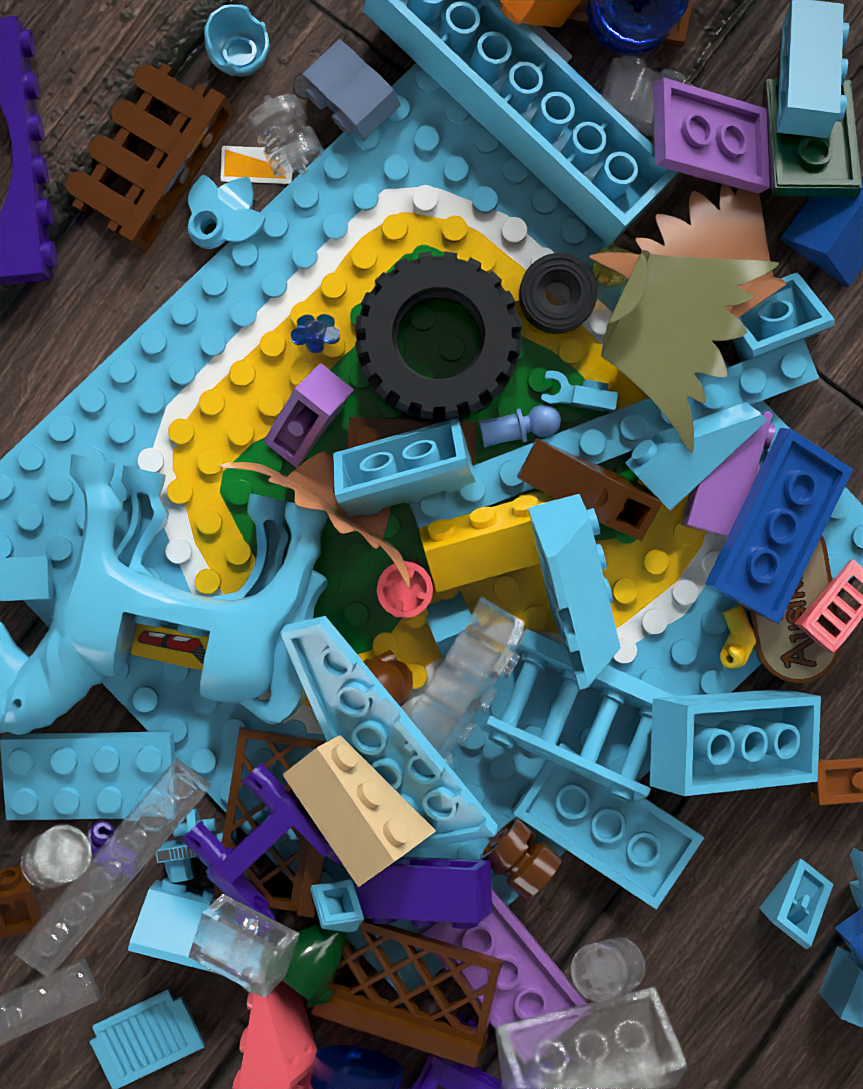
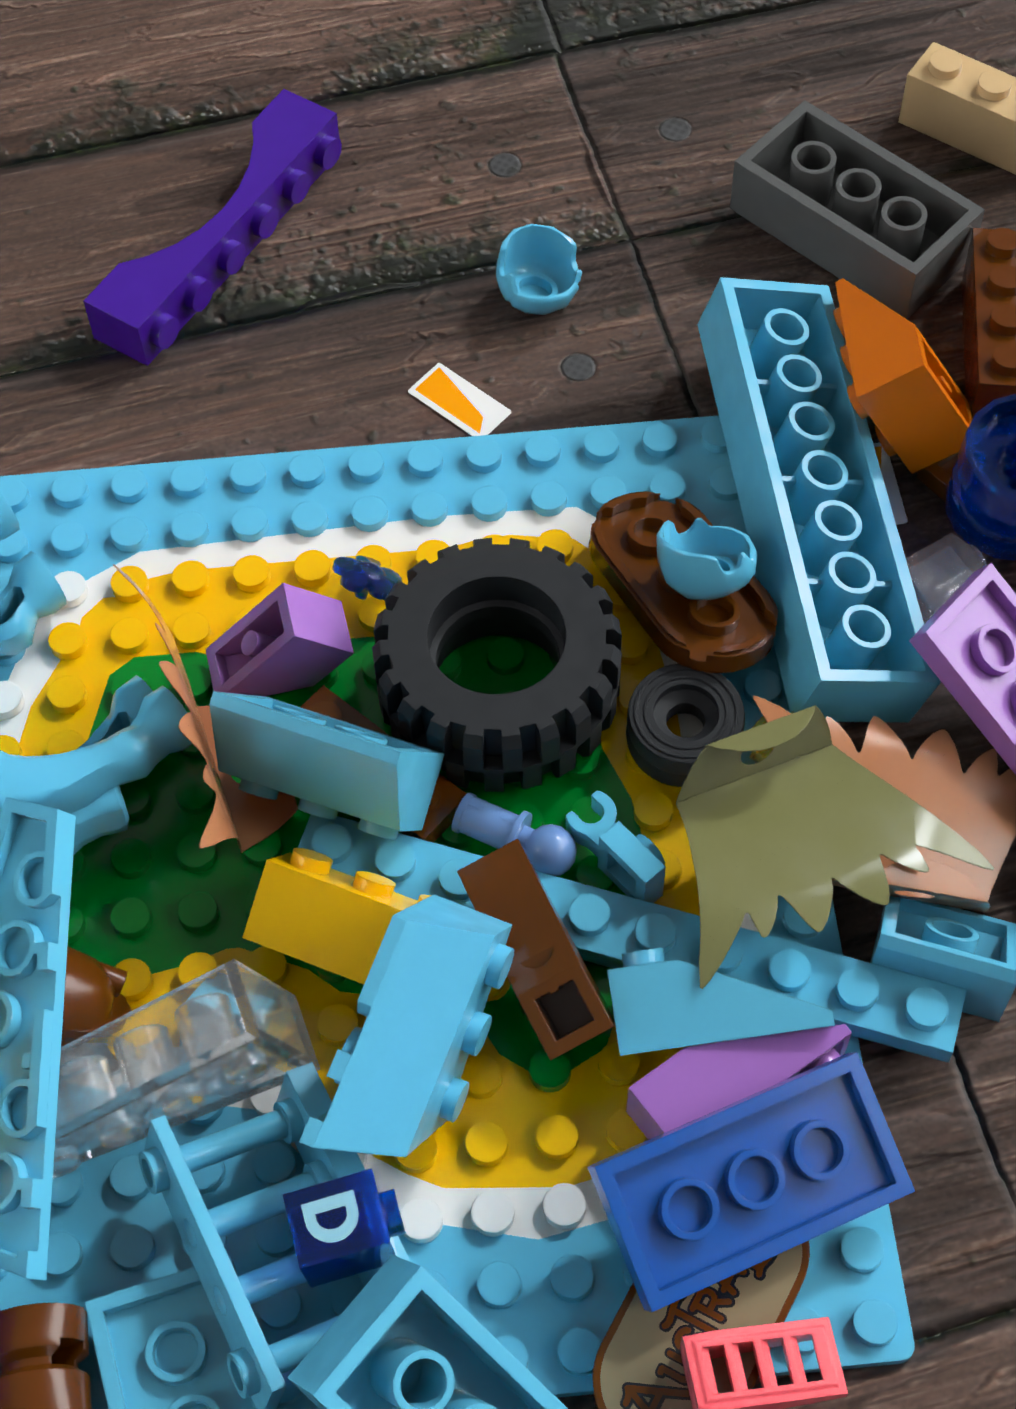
camera: 40 degrees right, 30 degrees down
(171, 168) = (363, 342): reddish brown fence -> none
(227, 208) = (378, 412): medium azure plate -> none
(281, 127) = (511, 379): clear wheel -> none
(350, 90) = (618, 384): sand blue brick -> none
(400, 599) = (208, 910): coral piece -> none
(492, 205) = (698, 634): none -> reddish brown tile
(508, 193) = (705, 559): none -> medium azure hair
(618, 700) = (343, 1227): none -> clear blue brick
(740, 640) = (587, 1320): yellow arm -> none

